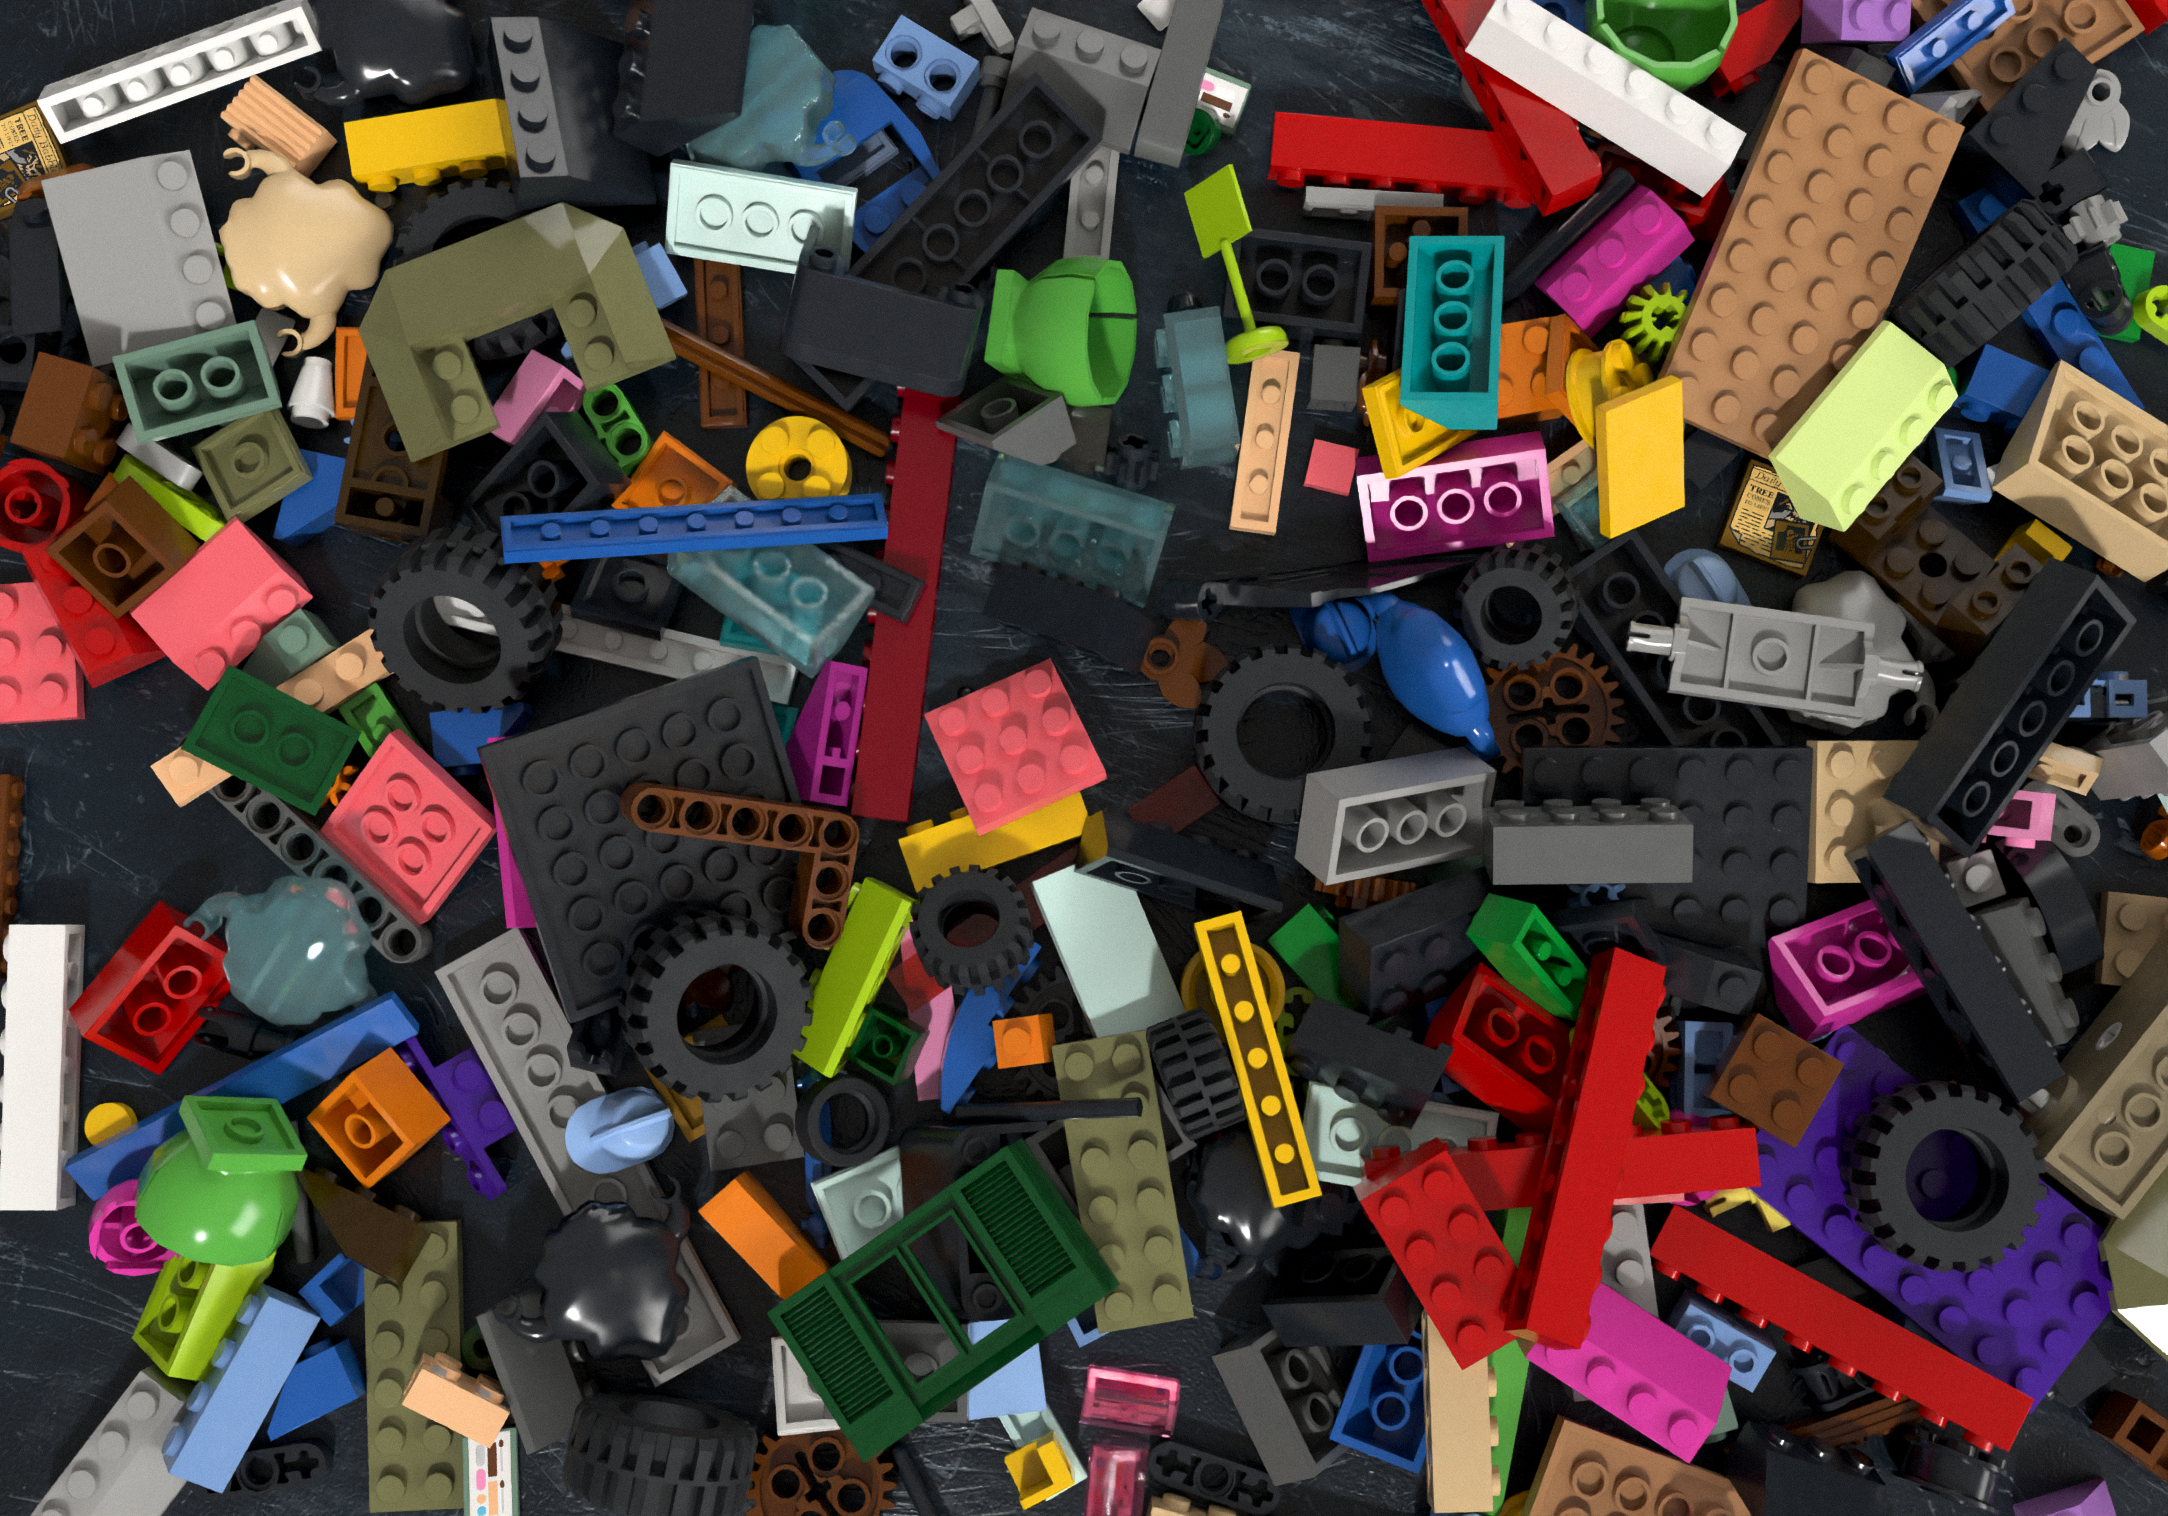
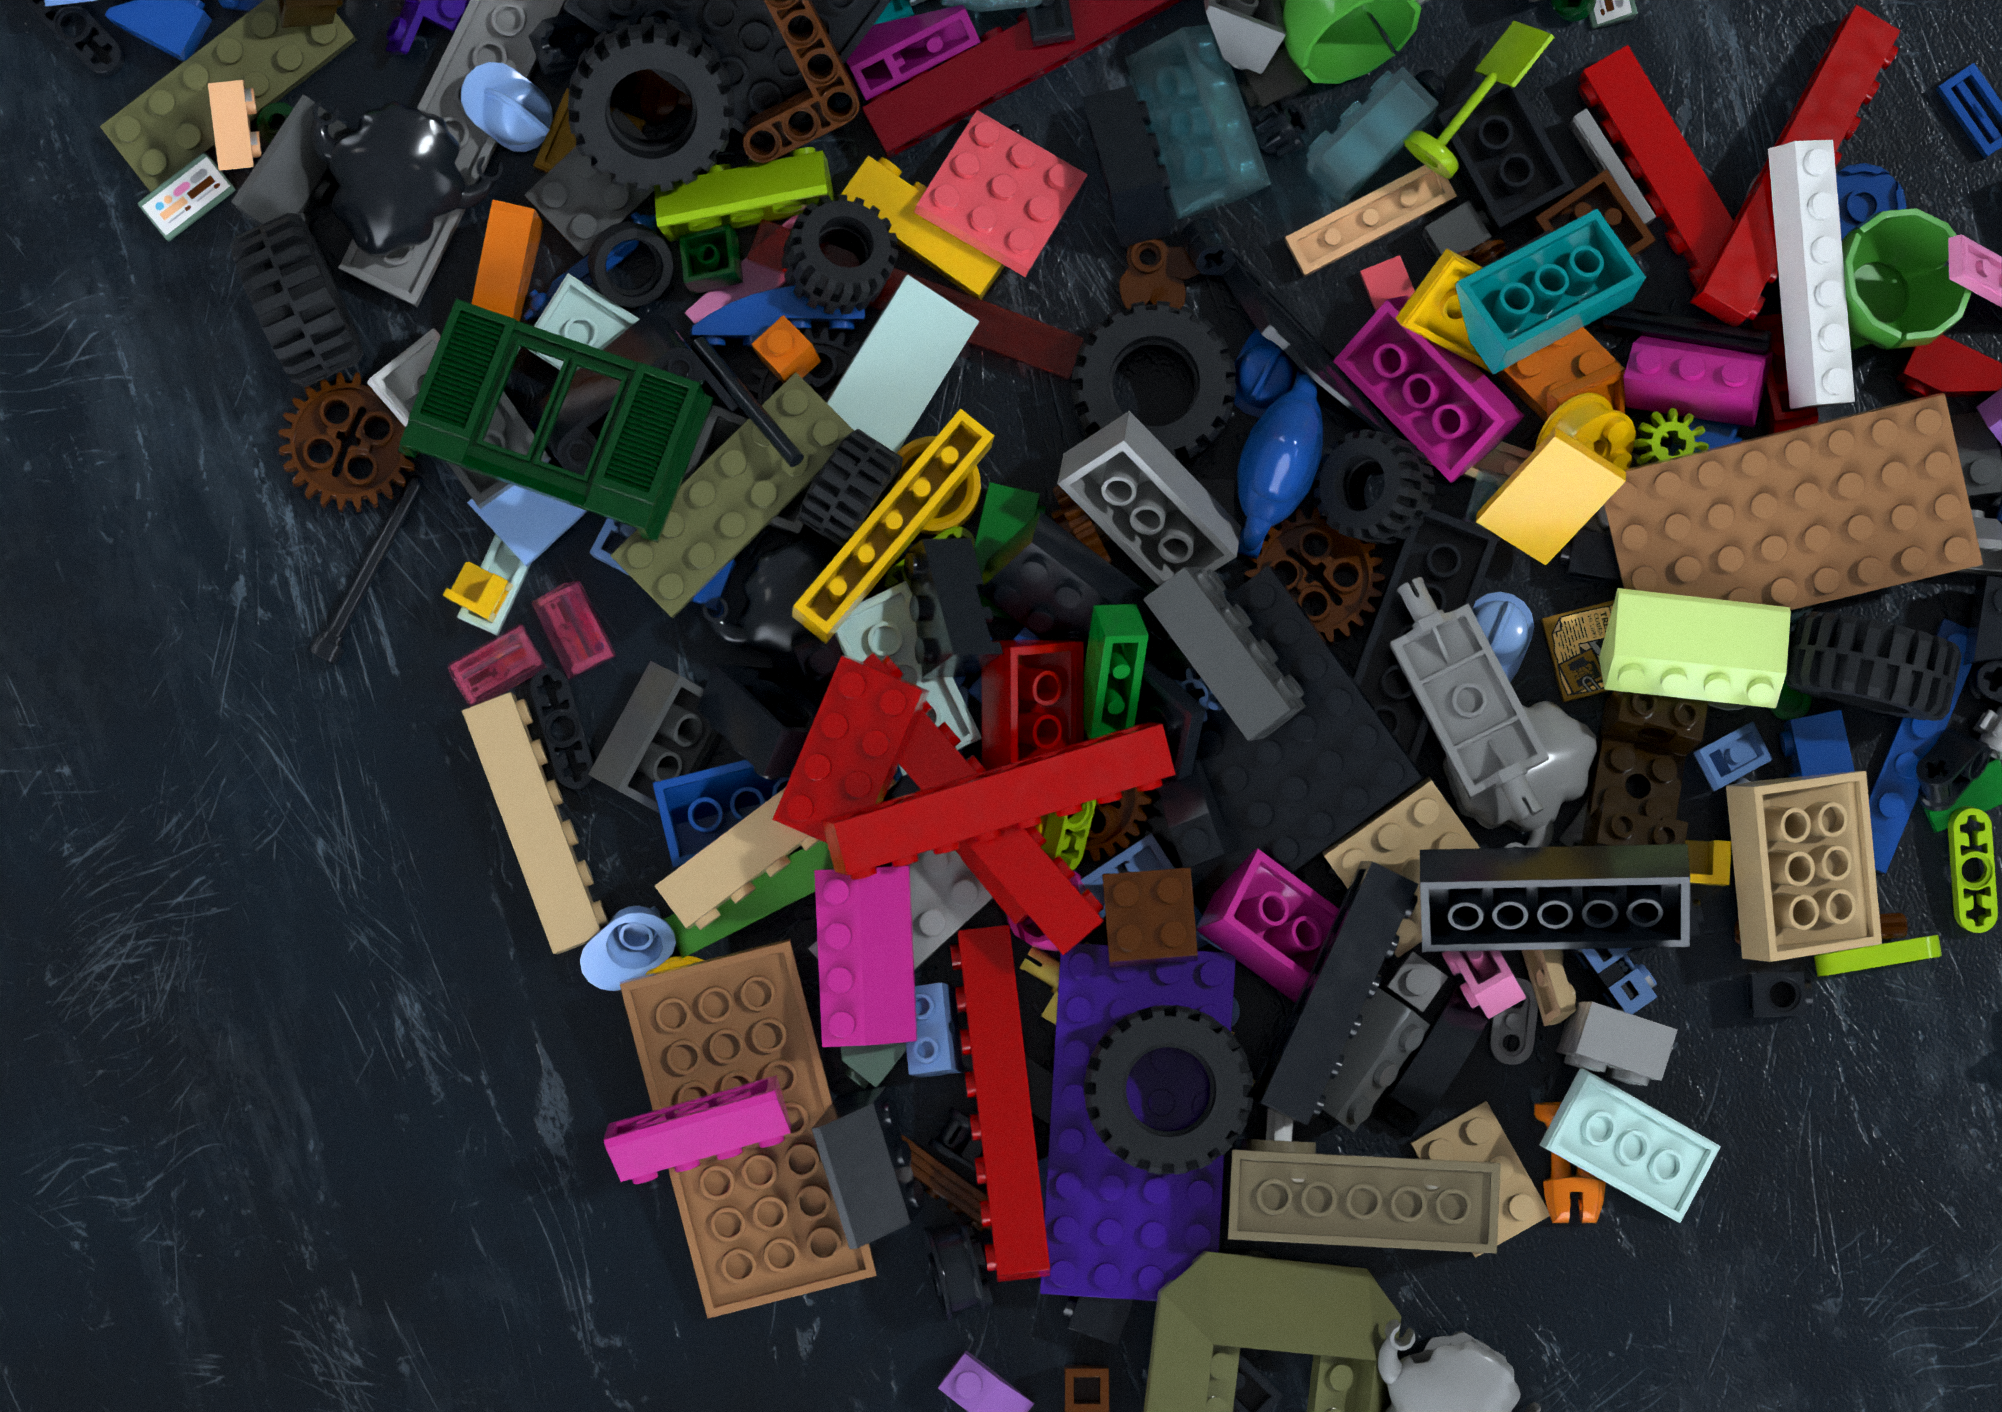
camera: 65 degrees right, 0 degrees up
(1177, 867) = (994, 373): black slope -> none

